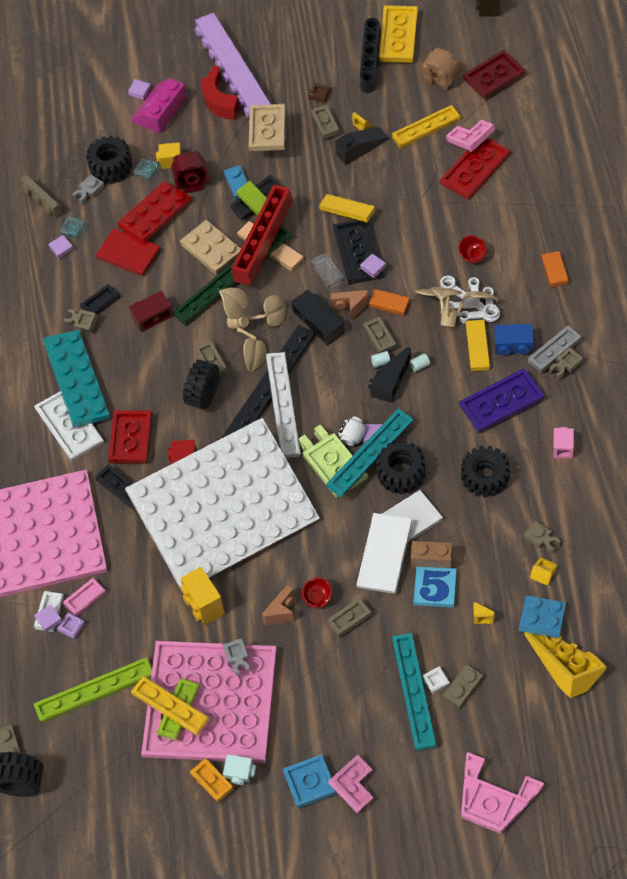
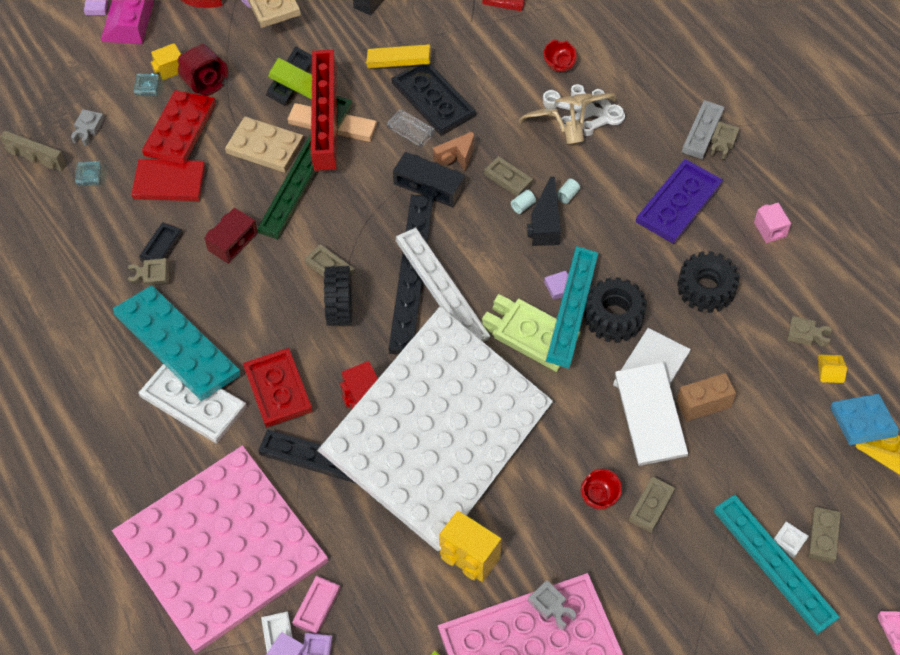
camera: 30 degrees left, 0 degrees up
(61, 246) = (83, 199): lavender tile -> none
(106, 149) = (98, 85): black tyre -> none
(234, 302) = (338, 190): tan plant -> none
(235, 179) = (257, 66): dark azure plate -> none
(277, 610) = (567, 528): nougat slope -> none
(351, 431) = (536, 289): white head -> none
(373, 265) = (461, 105): lavender tile -> none
(389, 302) = (497, 139): orange tile -> none
(435, 587) = (726, 431): medium azure tile -> none
(477, 345) = (618, 153): yellow tile -> none
(482, 614) = (798, 442): yellow slope -> none
(513, 339) = (655, 133): blue brick -> none
(554, 269) = (653, 50): orange tile -> none

